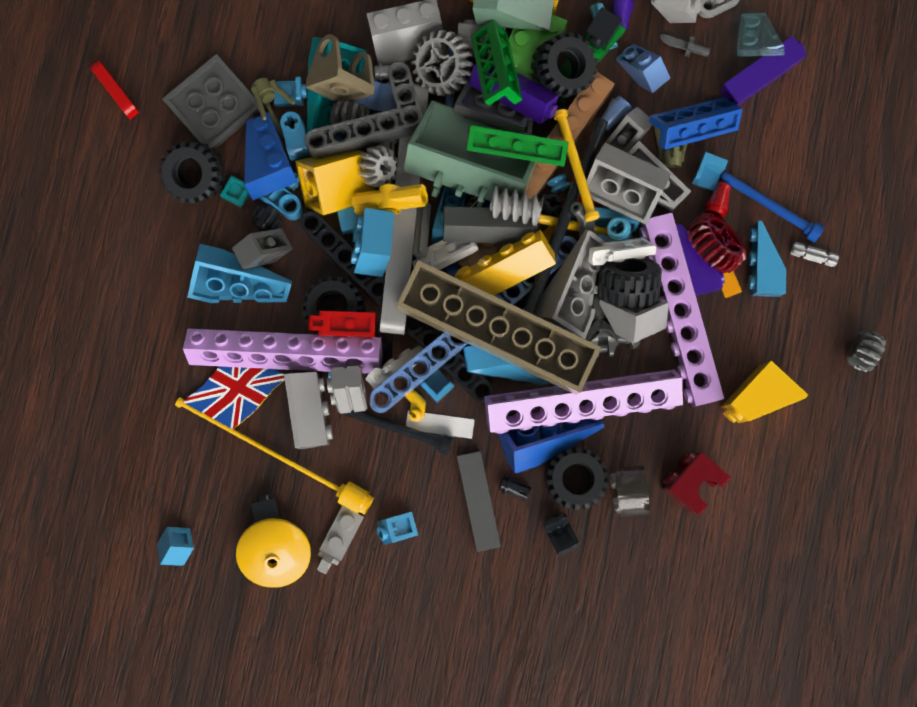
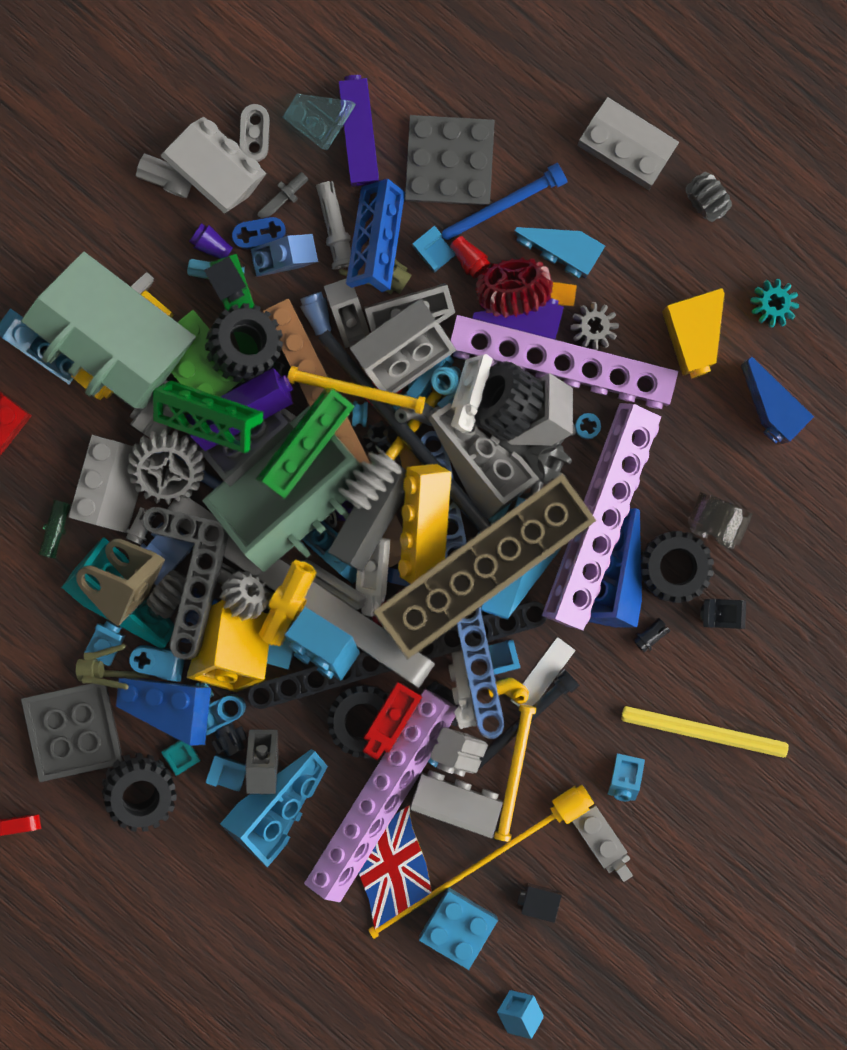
camera: 65 degrees left, 5 degrees up
(215, 463) = (458, 928): none -> dark azure brick
(240, 226) = (226, 773): none -> dark azure panel
(277, 541) = (570, 913): yellow dish -> none
(351, 13) = (54, 529): none -> clear green pin
(355, 442) = (515, 772): none -> yellow bar
(464, 570) = (704, 731): none -> light yellow axle
(478, 501) = (644, 678): dark grey tile -> none
(635, 356) = (584, 434): none -> dark azure bush
(651, 37) = (258, 226): none -> blue beam
(678, 98) = (337, 237): none -> light grey pin
(685, 481) = (736, 449): dark red piece -> none
(725, 328) = (585, 328): none -> light grey gear
(741, 491) = (776, 407): none -> blue slope
(780, 149) = (449, 160): none -> dark grey plate
(814, 254) = (579, 188): light grey axle -> none
(823, 444) = (771, 312): none -> teal gear
(867, 270) = (627, 143): none -> light grey slope

